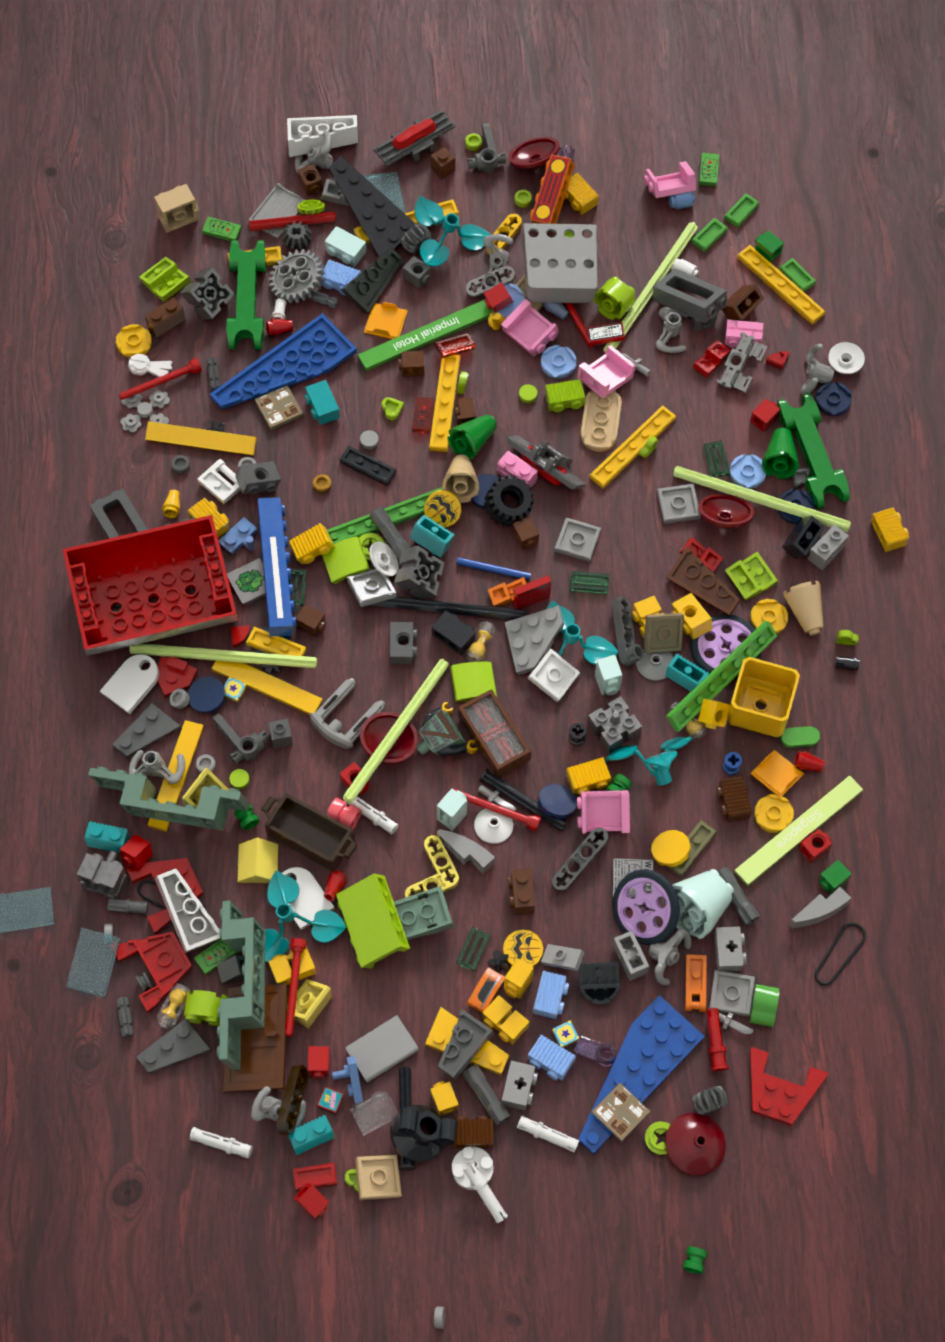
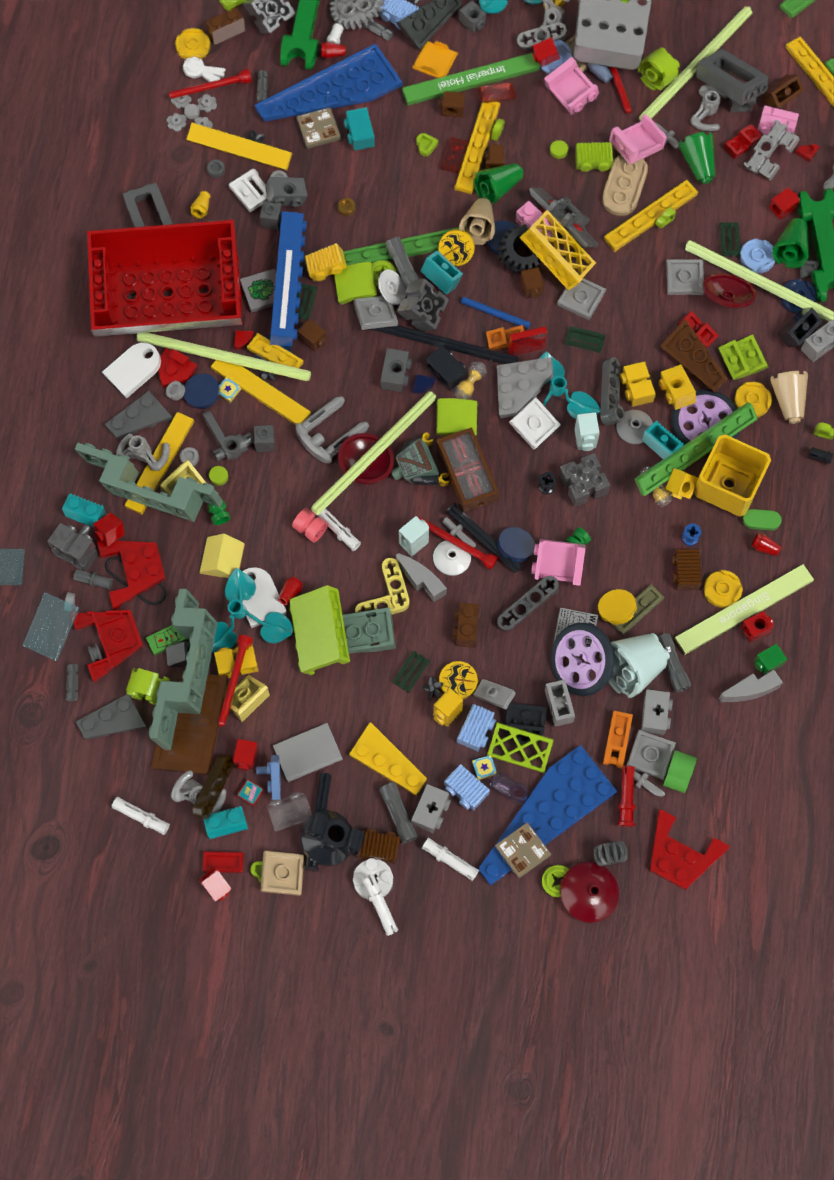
camera: 10 degrees right, 5 degrees up
(167, 1016) = (112, 689): clear piece -> none
(190, 919) = (146, 596): white wedge -> none
(205, 508) = (231, 213): yellow brick -> none
(239, 536) = (258, 245): medium blue plate -> none
(246, 504) = (271, 216): none -> dark grey brick
(308, 831) = (274, 535): dark brown container -> none
(351, 773) = (322, 487): red brick -> none
(367, 465) = (393, 196): black tile -> none
(369, 439) = (398, 171): light grey tile -> none
(432, 652) = (423, 383): none -> clear blue tile
(439, 1317) = (316, 1015): light grey tile -> none
(444, 1098) = (357, 809): yellow brick -> none
(466, 1041) = (388, 758): dark grey wing -> none
(486, 990) = (415, 713): orange slope -> none
(495, 320) = (539, 74): yellow plate -> none
(497, 1013) = (425, 741): yellow piece -> none
(541, 502) = (552, 256): none -> yellow fence
(558, 362) = (593, 123): light blue tile -> none
(588, 776) = (550, 525): yellow brick -> none
(605, 333) = (644, 102): tile -> none
(606, 1023) = (533, 737): none -> lime window
(661, 762) = (620, 522): teal plant -> none
(663, 632) = (647, 398): dark tan tile -> none
(668, 953) = (596, 707): light grey piece -> none
(672, 379) = (699, 154): none -> green cone
(685, 267) = (733, 48): white brick -> none
(694, 1260) = (569, 1002): green wheel -> none
(709, 235) = (762, 21): bright green tile -> none
(769, 245) = (818, 40): green brick -> none
(777, 773) = (733, 551): light orange piece -> none
(848, 959) = (757, 724): black piece -> none

